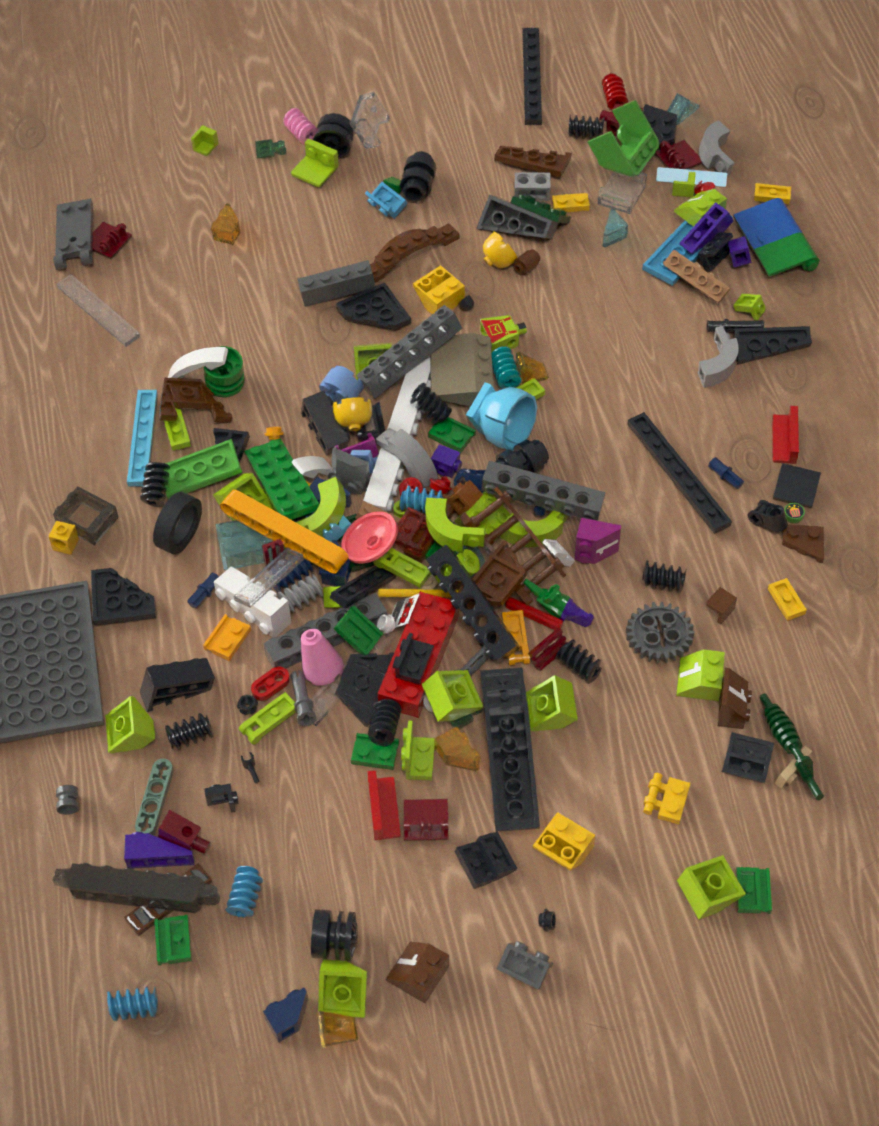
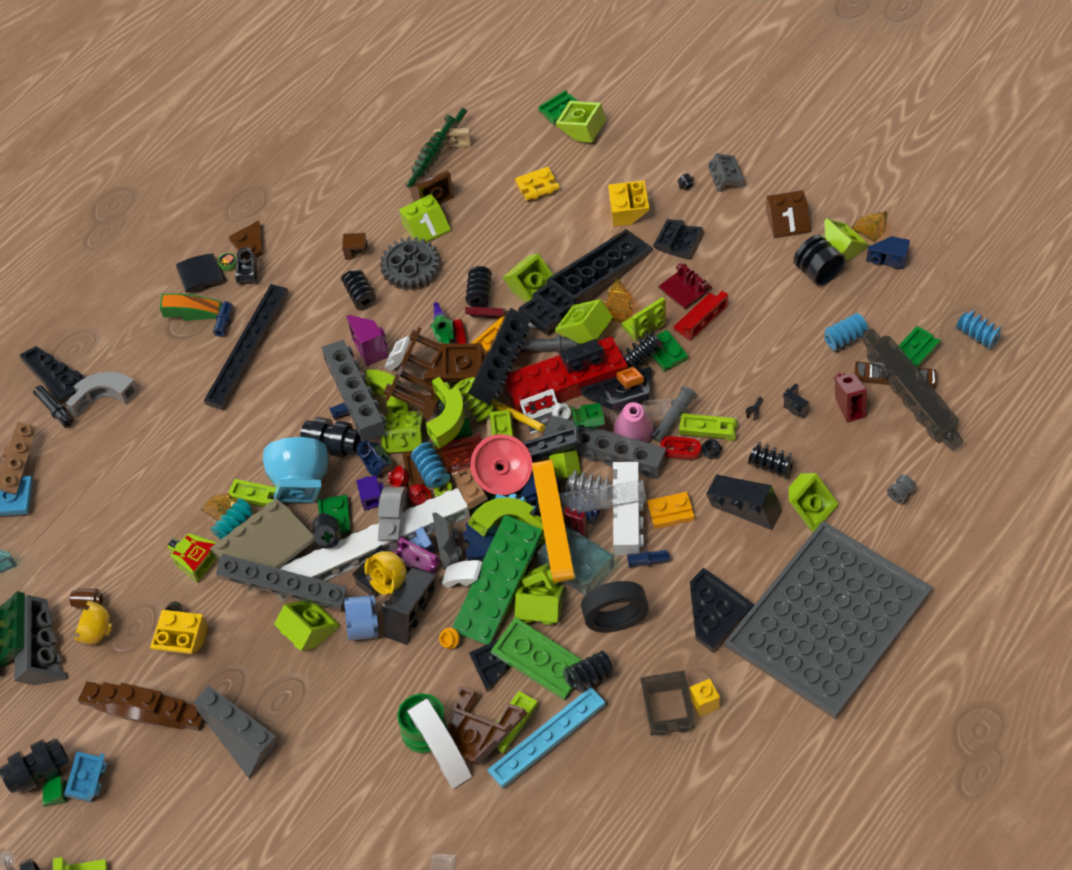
camera: 125 degrees left, 0 degrees up
(149, 851) = (880, 409): dark purple slope -> none
(154, 798) = (839, 443): sand green beam -> none
(367, 692) = (630, 377): none -> orange tile
(375, 308) = (238, 675): black plate -> none
(464, 497) = (399, 444): dark orange brick -> none
(748, 757) = (465, 166): black slope -> none
(750, 303) = (19, 410): lime bracket -> none
(759, 455) = (189, 306): none -> slope
(785, 437) = (146, 308): red panel -> none
(787, 599) = (314, 218): yellow plate -> none

